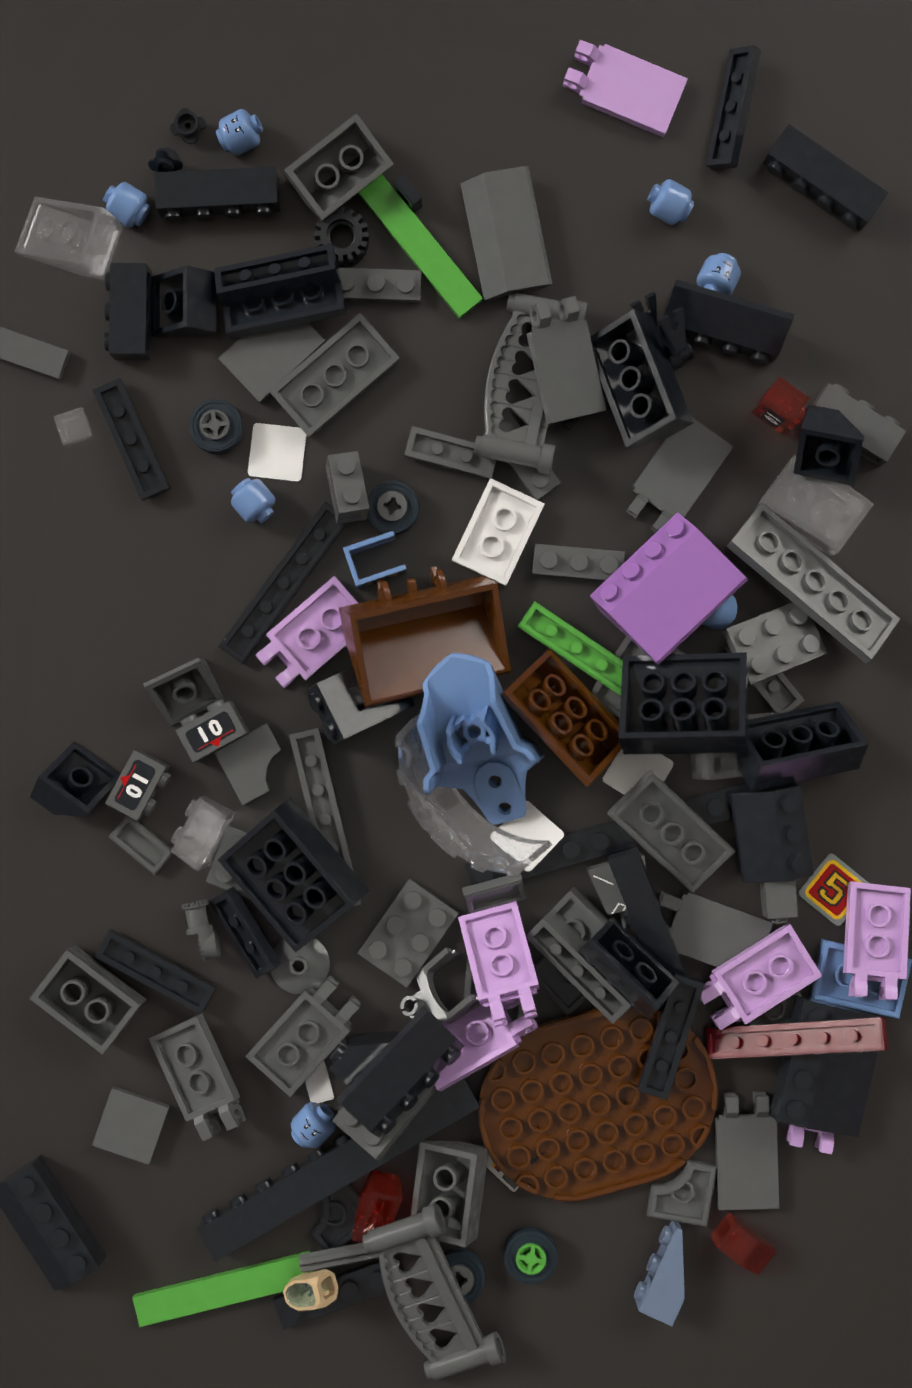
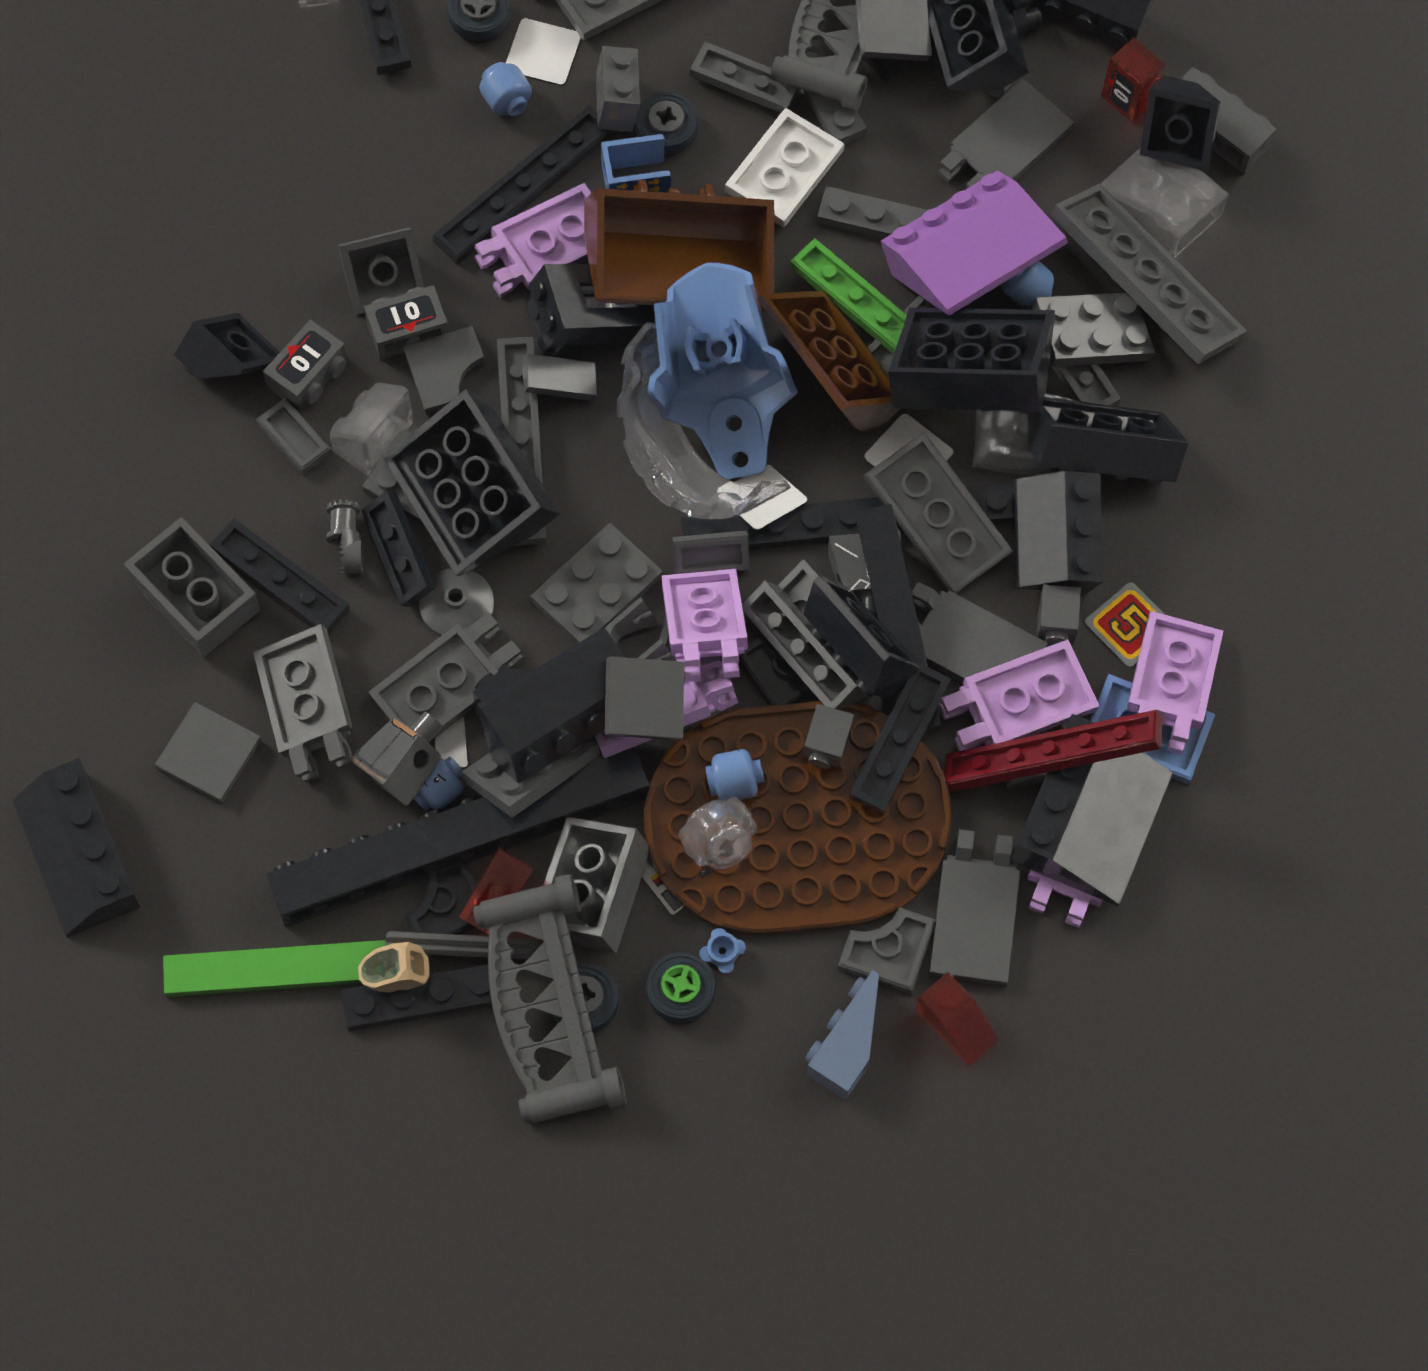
camera: 10 degrees right, 20 degrees down
(281, 1121) = (400, 756): none -> dark grey torso
(346, 760) = (559, 377): none -> dark grey tile
(466, 1056) = (644, 698): none -> dark grey tile
(541, 1141) = (718, 833): none -> clear hair
(545, 1091) = (734, 775): none -> medium blue head
(561, 1226) = (718, 940): none -> medium blue plate
(613, 1047) = (827, 736): none -> dark grey brick

